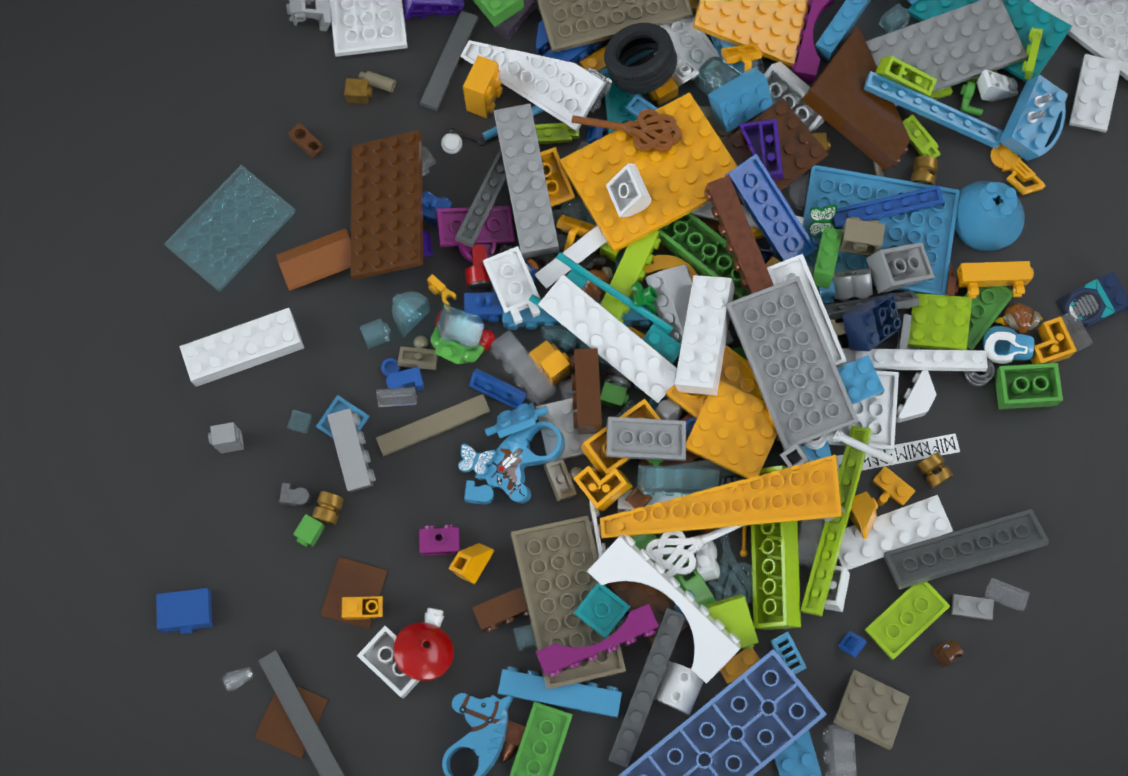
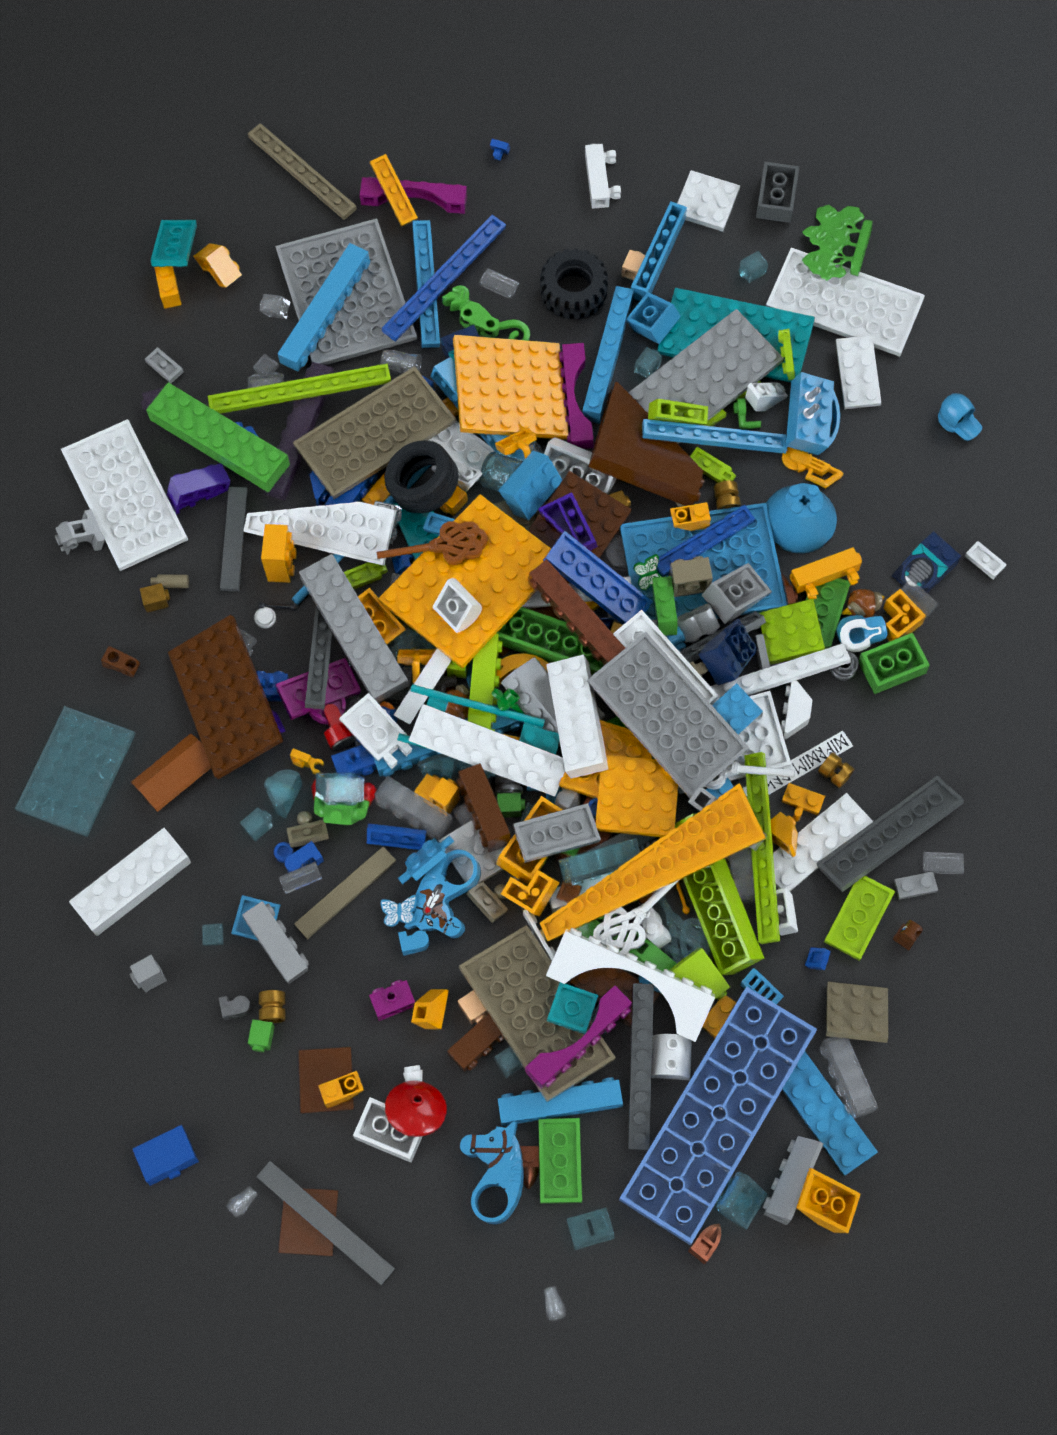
camera: 20 degrees left, 5 degrees down
(510, 574) = (472, 1007): none -> light nougat brick
(882, 180) = (691, 517): none -> light orange slope

